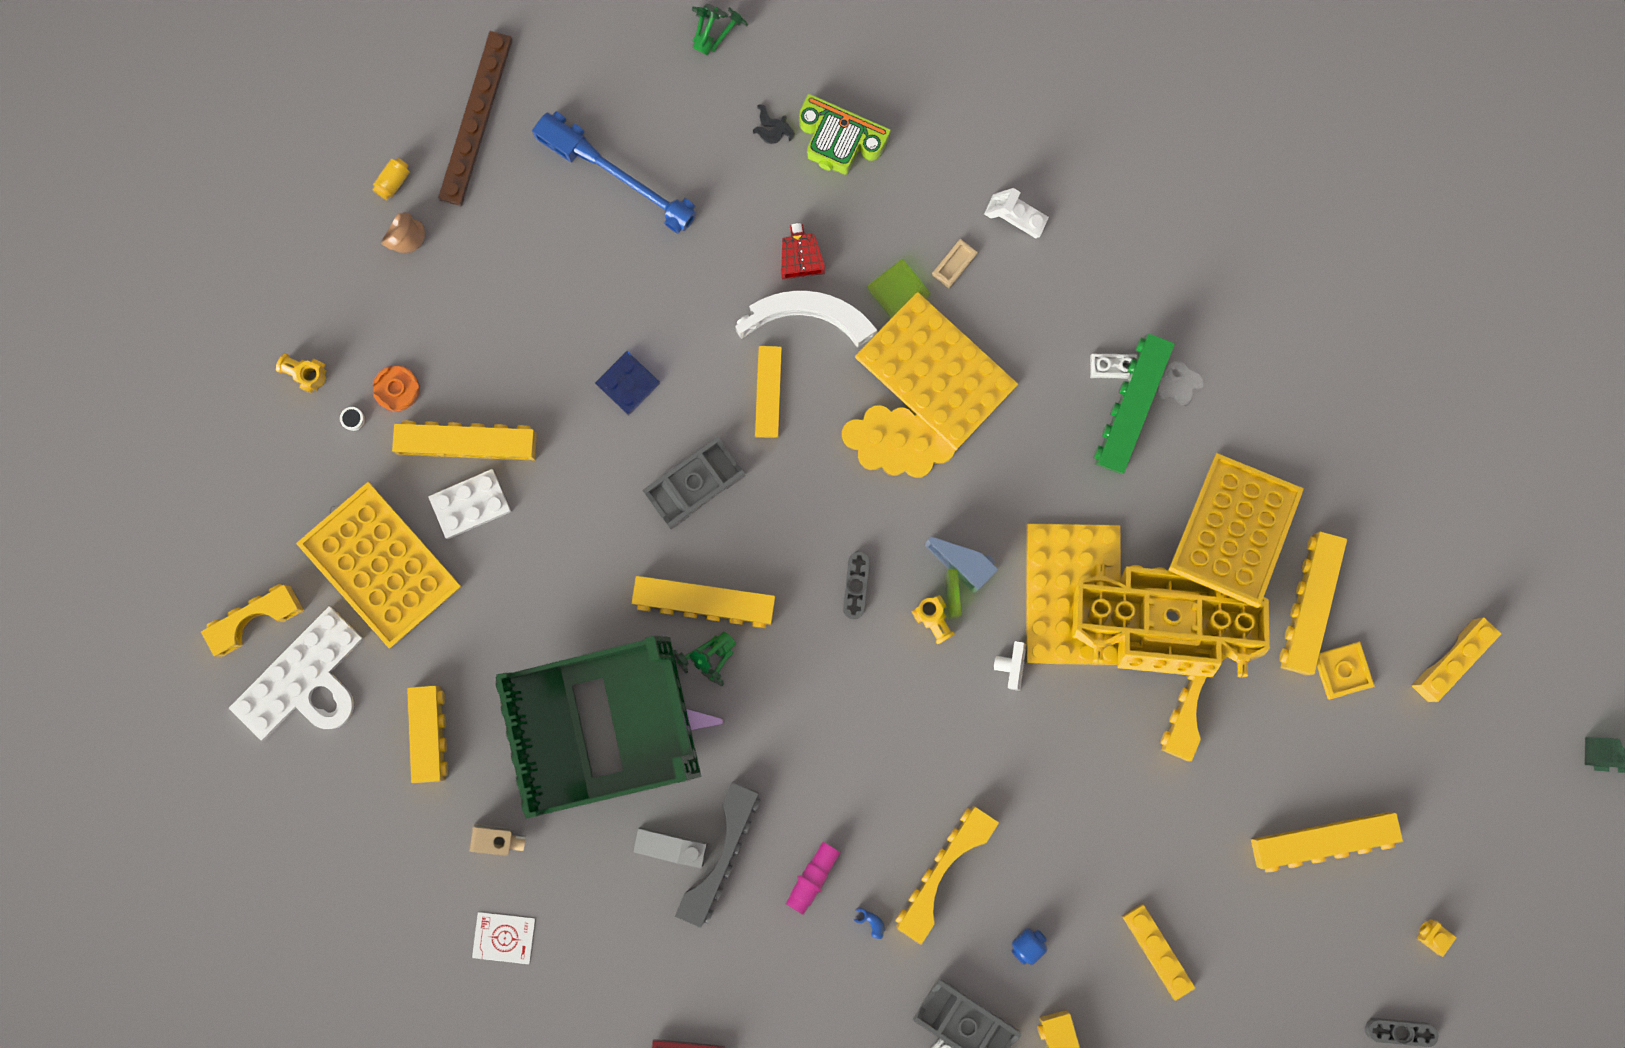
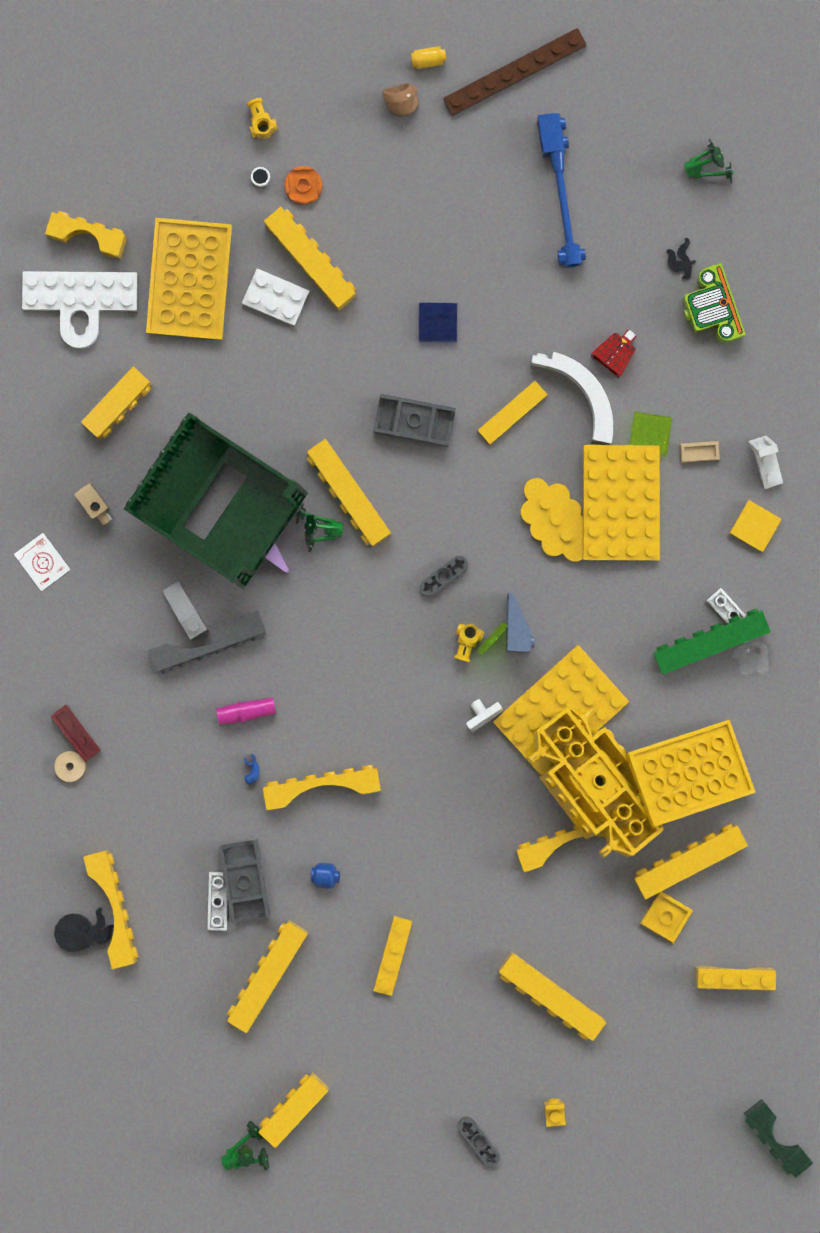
camera: 45 degrees right, 5 degrees up
(1064, 275) = (755, 526): none -> yellow tile

